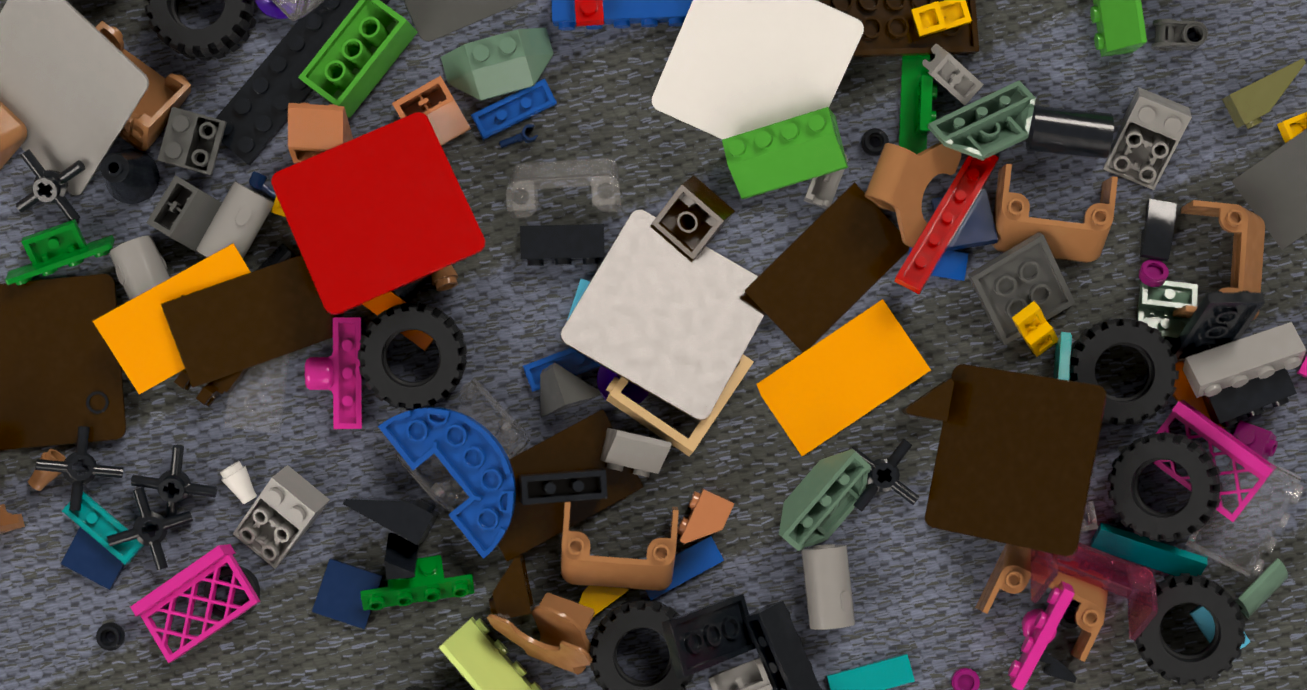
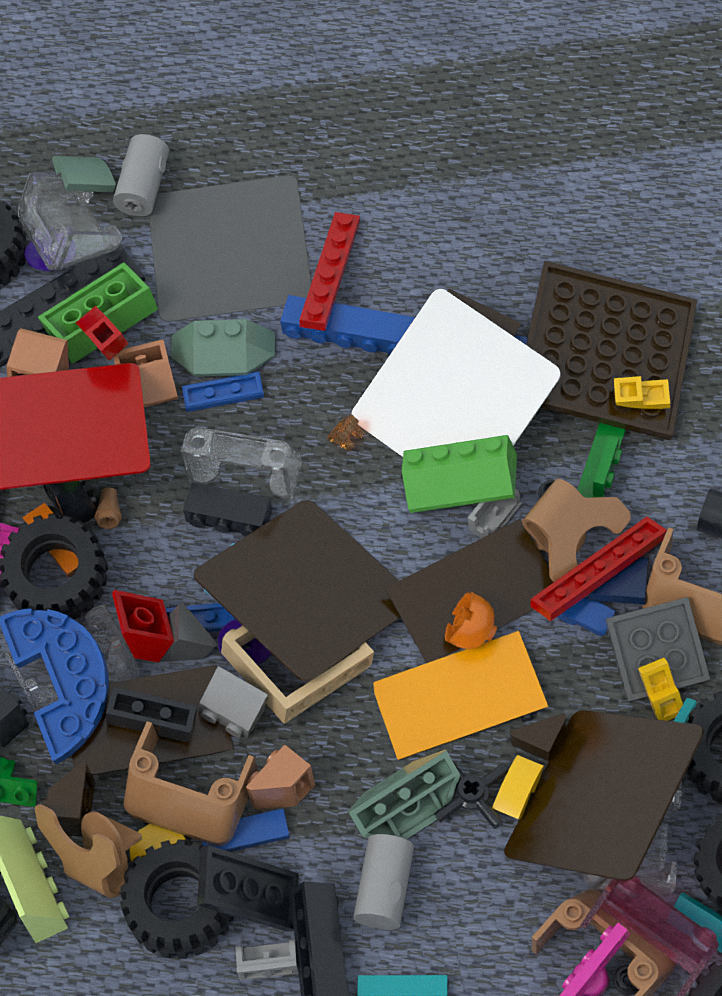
camera: 25 degrees right, 25 degrees down
(376, 89) = (102, 333): none -> red slope
(519, 137) = (221, 415): dark blue hand -> none
(523, 394) = (143, 625): none -> red slope
(651, 125) = (343, 430): none -> clear orange tile
(693, 216) = (357, 514): dark brown slope -> none
(838, 307) = (472, 622): none -> orange cylinder
(924, 458) = (517, 787): none -> yellow slope
(952, 75) = (639, 445): light grey hinge -> none
(988, 123) = (660, 490): sand green wedge -> none

